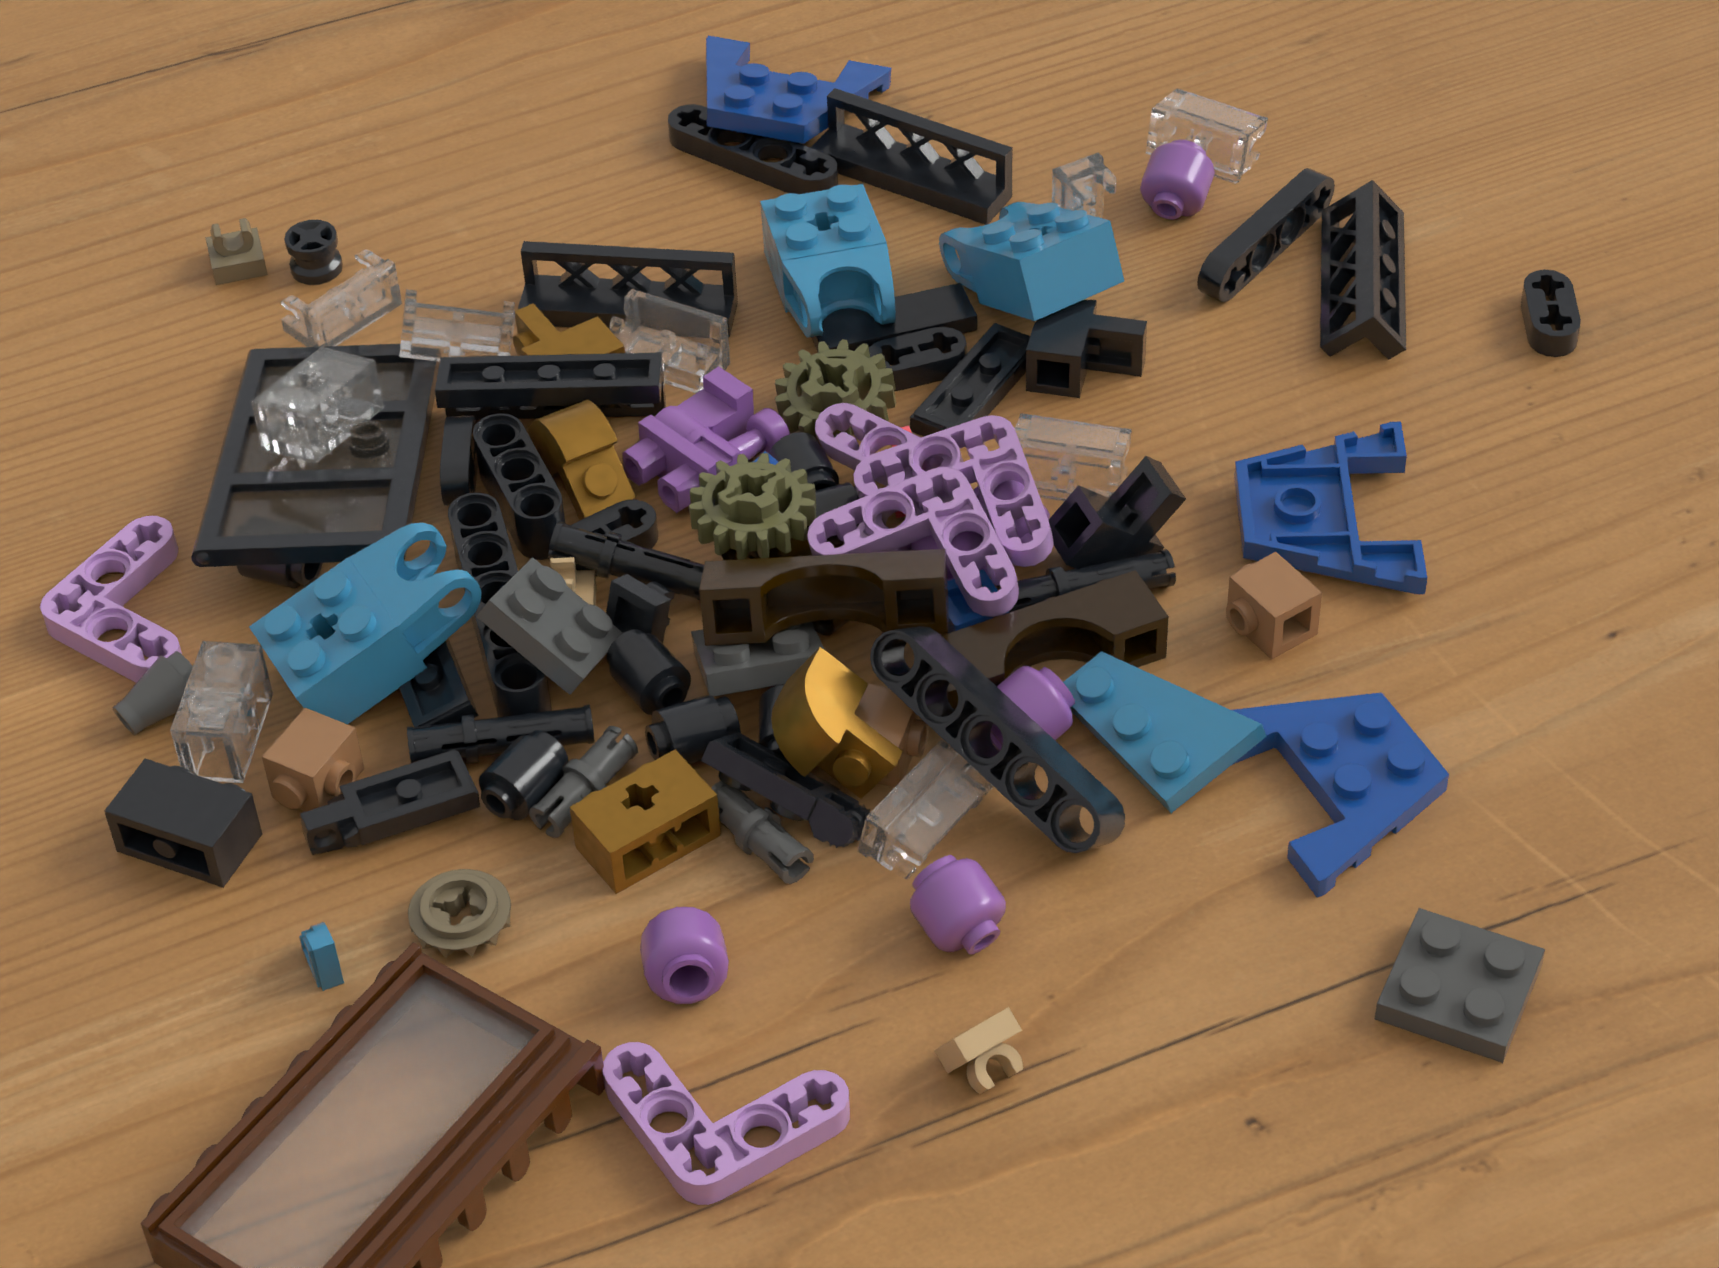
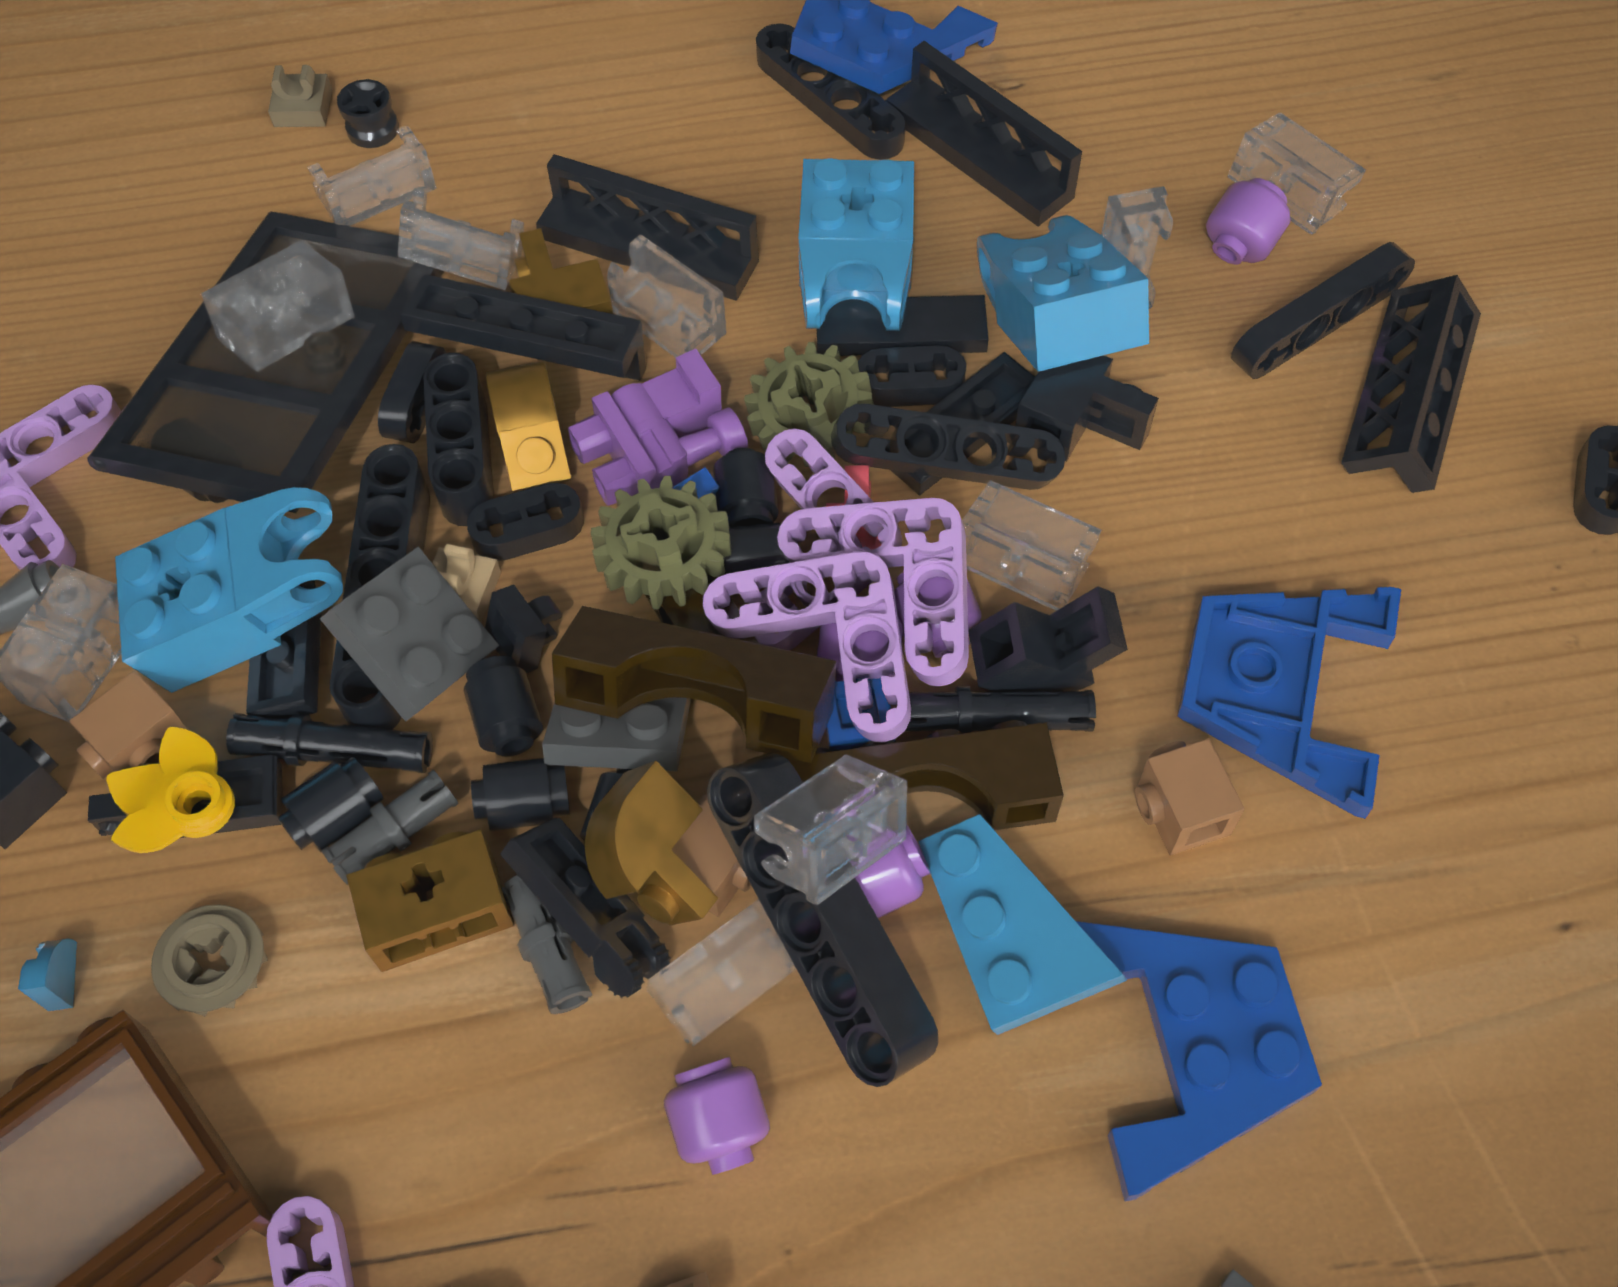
camera: 15 degrees right, 15 degrees up
(383, 790) = (163, 795): none -> yellow plate
(617, 557) = (515, 554): black pin -> none
(684, 955) = (405, 1096): medium lavender head -> none
(972, 389) = (948, 439): none -> black beam
(995, 656) = (834, 826): none -> clear hinge

